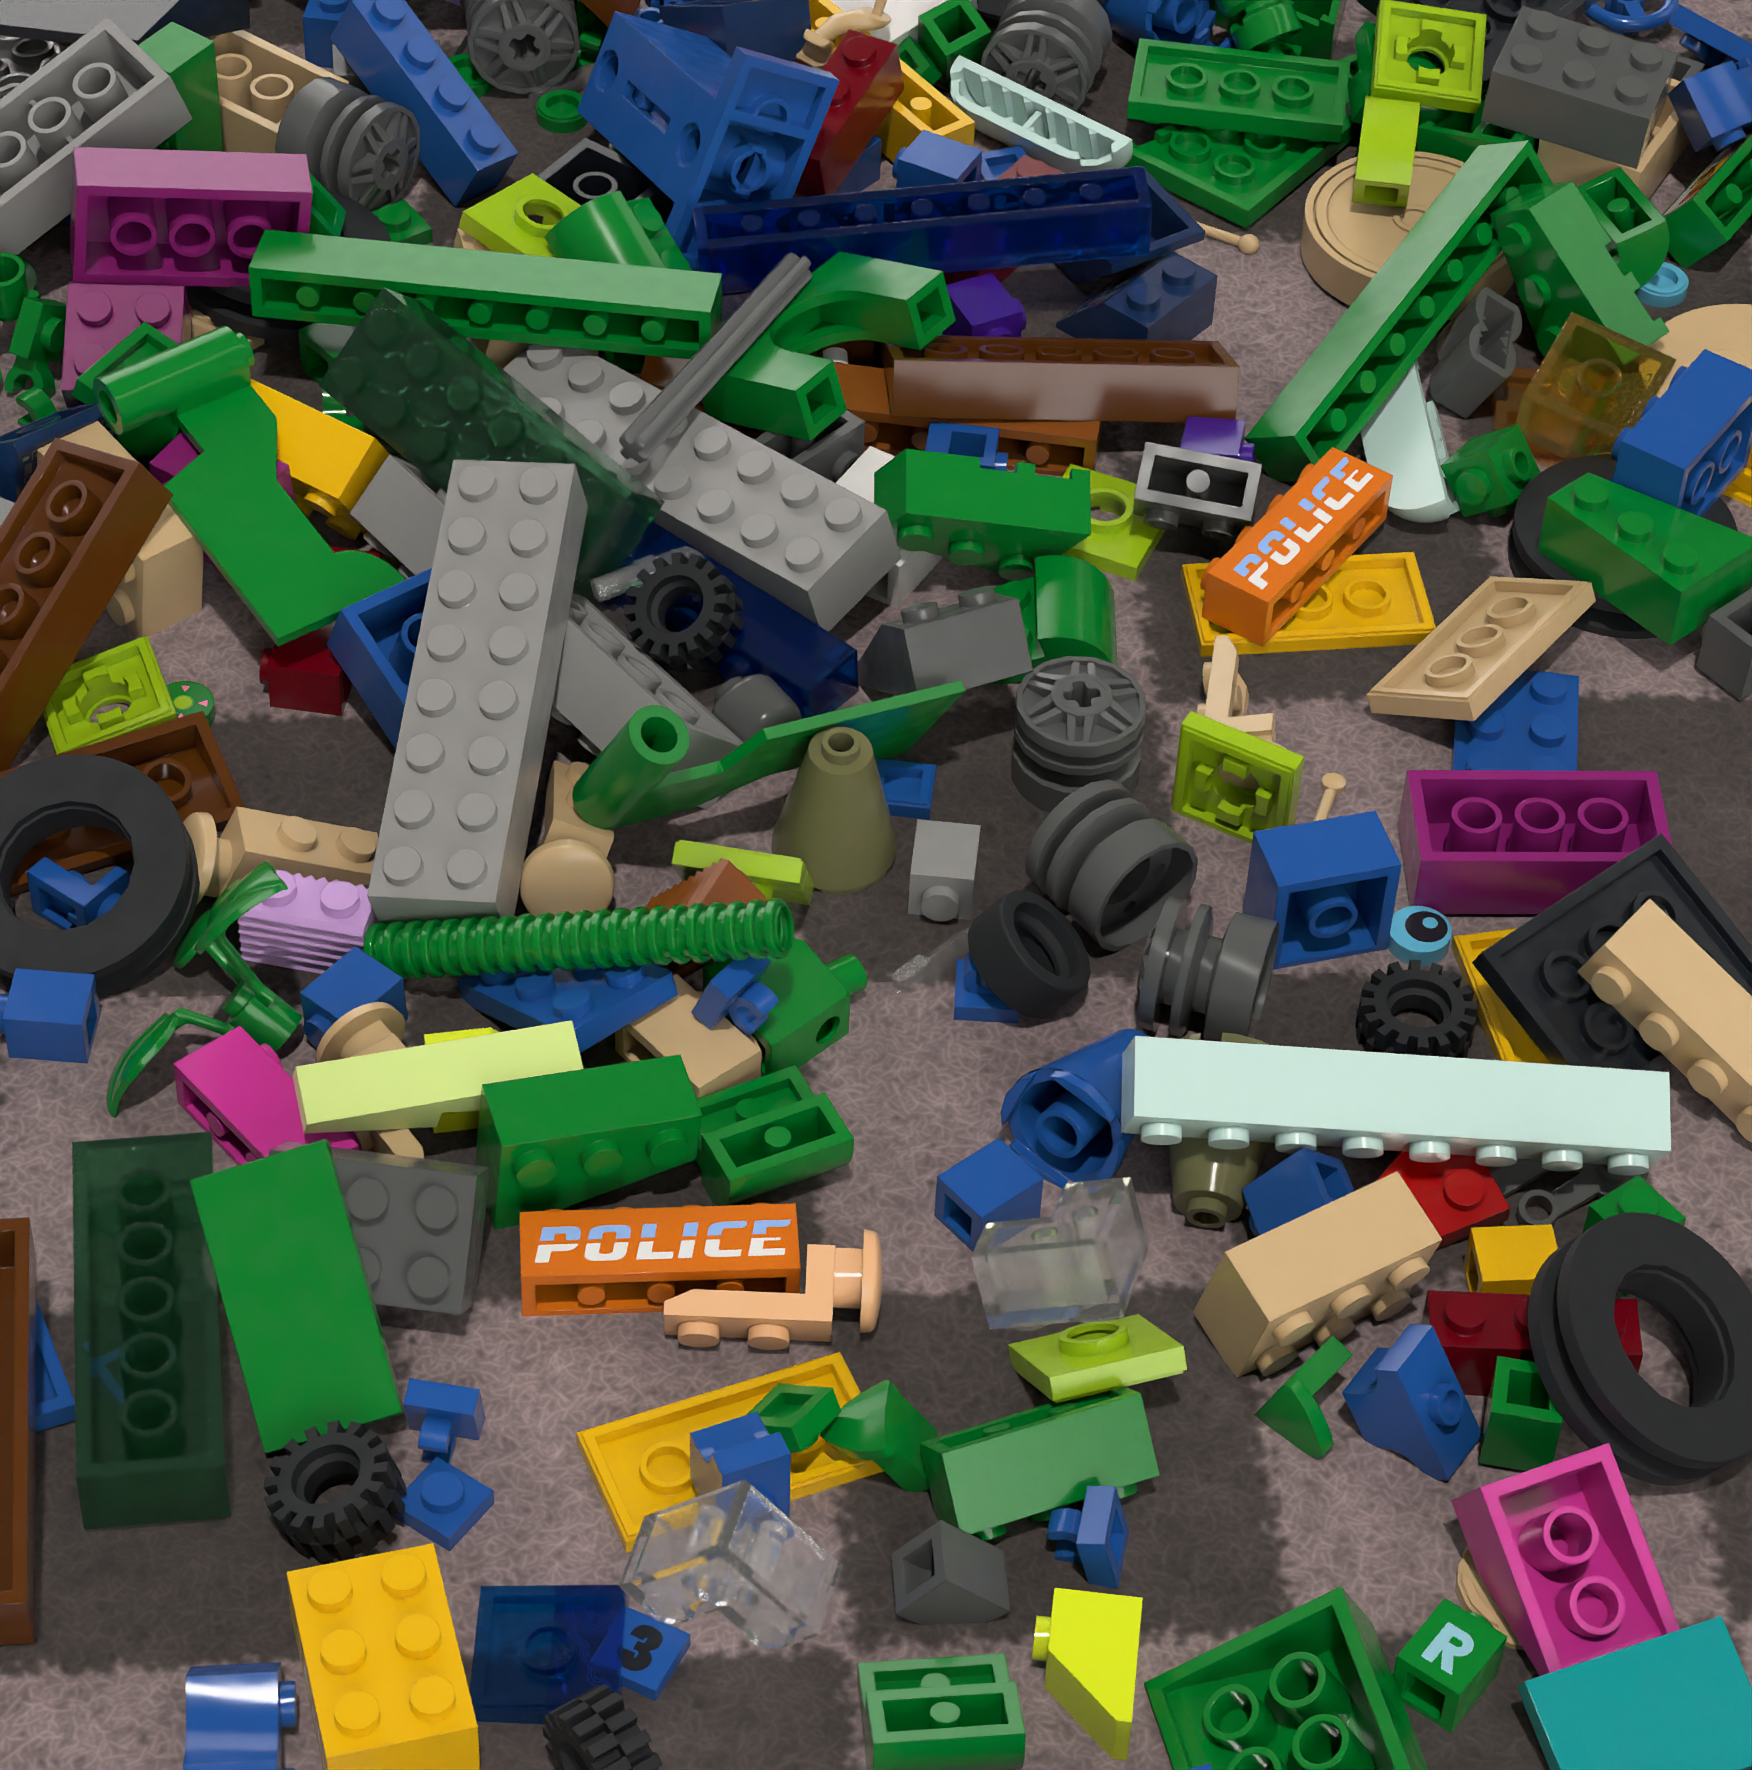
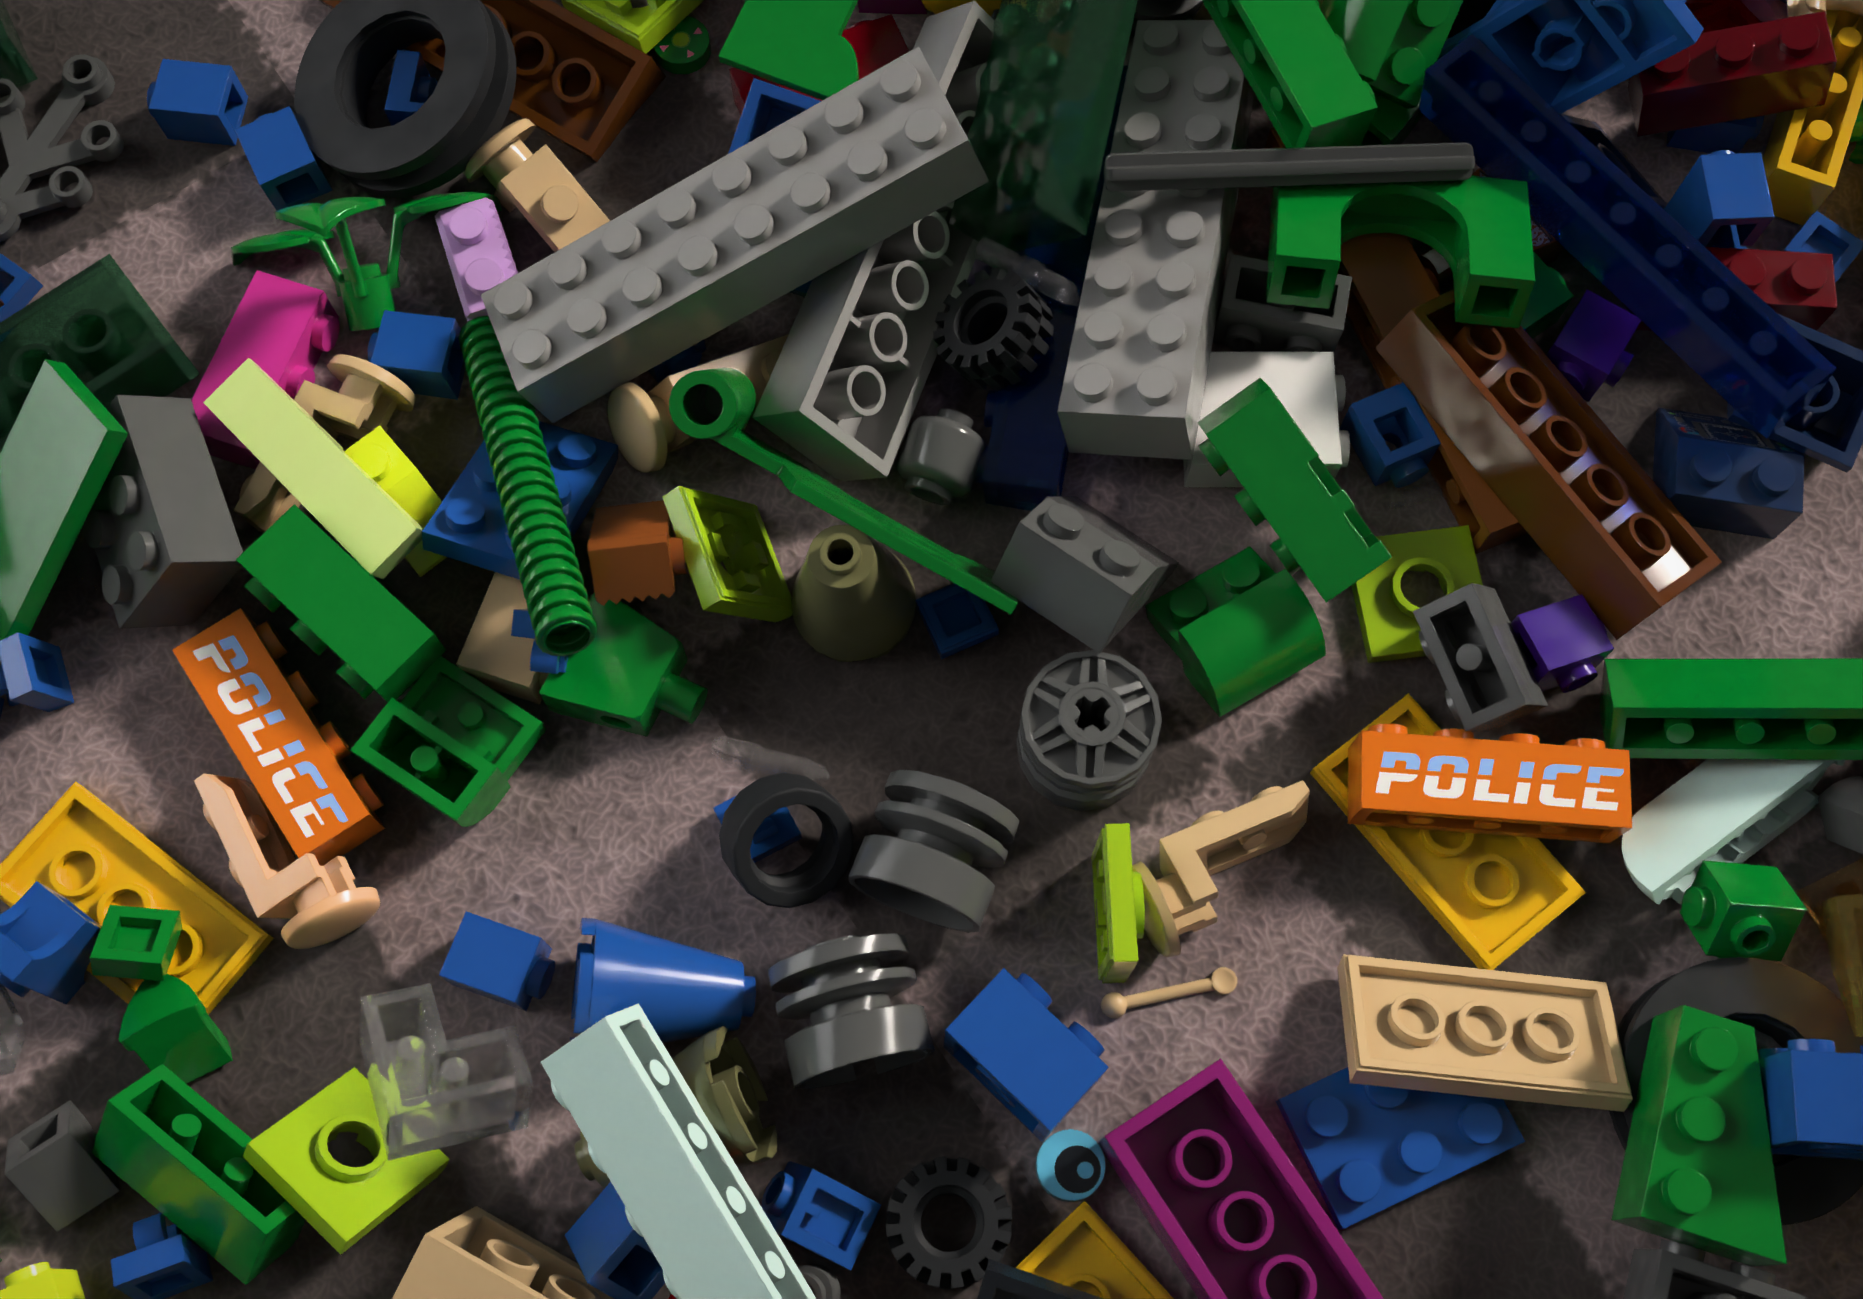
camera: 60 degrees right, 25 degrees up
(944, 870) = (861, 709): light grey brick -> none

